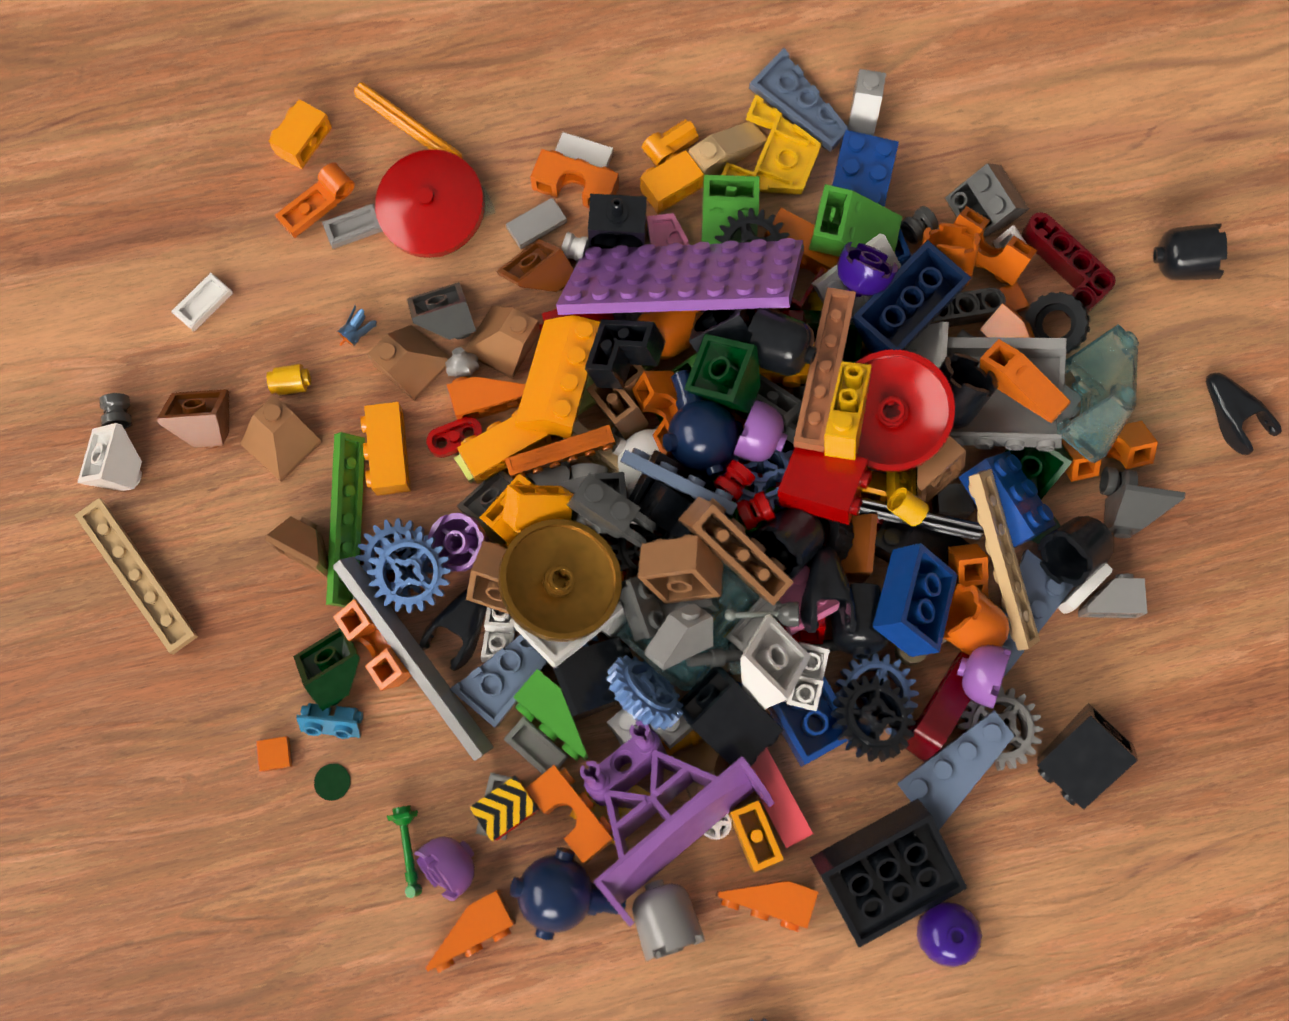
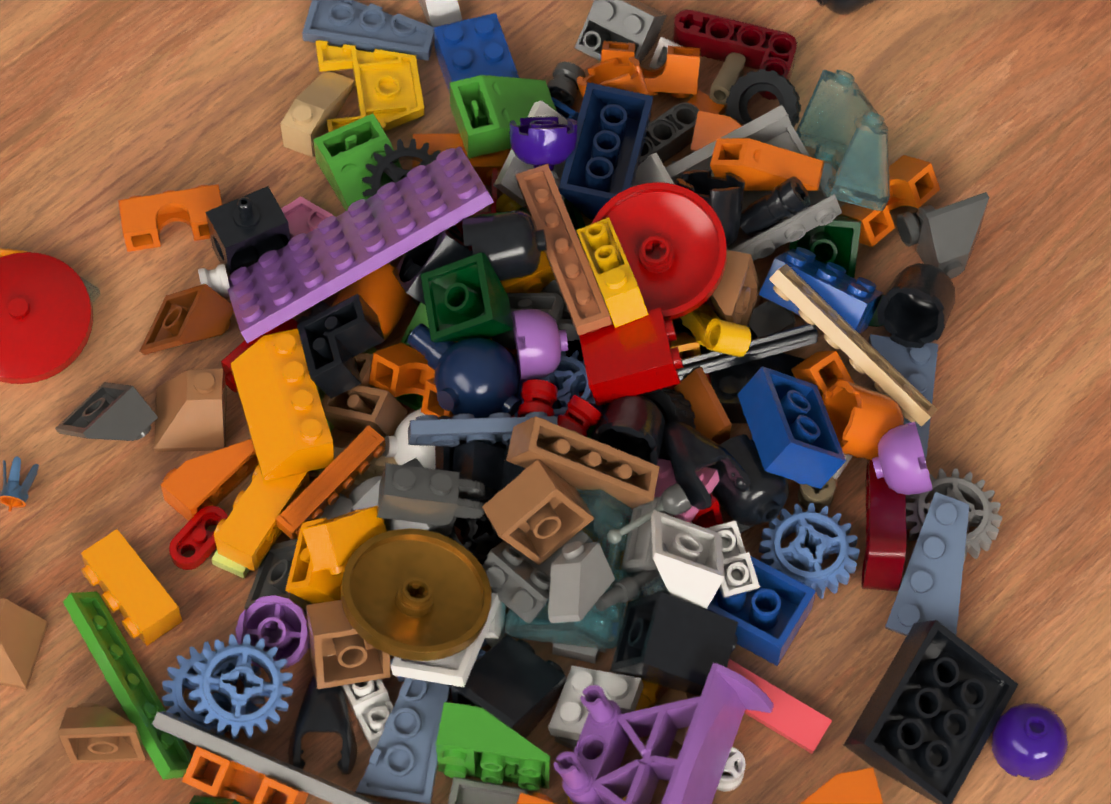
camera: 30 degrees left, 15 degrees down
(408, 360) = (98, 489): medium nougat slope -> none
(461, 363) = (160, 458): light grey piece -> none
(536, 223) = (154, 281): light grey tile -> none
(577, 147) = (162, 181): white tile -> none
(644, 692) = (572, 663): medium blue gear -> none
(671, 181) = (279, 165): light orange brick -> none
(678, 138) = (250, 137): light orange piece -> none
(755, 836) = (775, 752): light orange brick -> none
(864, 725) = (818, 570): black gear -> none
(1018, 418) = (770, 209): none -> black axle
(1045, 284) = (727, 76): none -> dark tan bar
(1082, 591) = (950, 341): white tile -> none
(1086, 757) = (1053, 495): black slope -> none
(1118, 599) = (989, 333): light grey slope -> none
(1233, 407) = (984, 99): black animal -> none

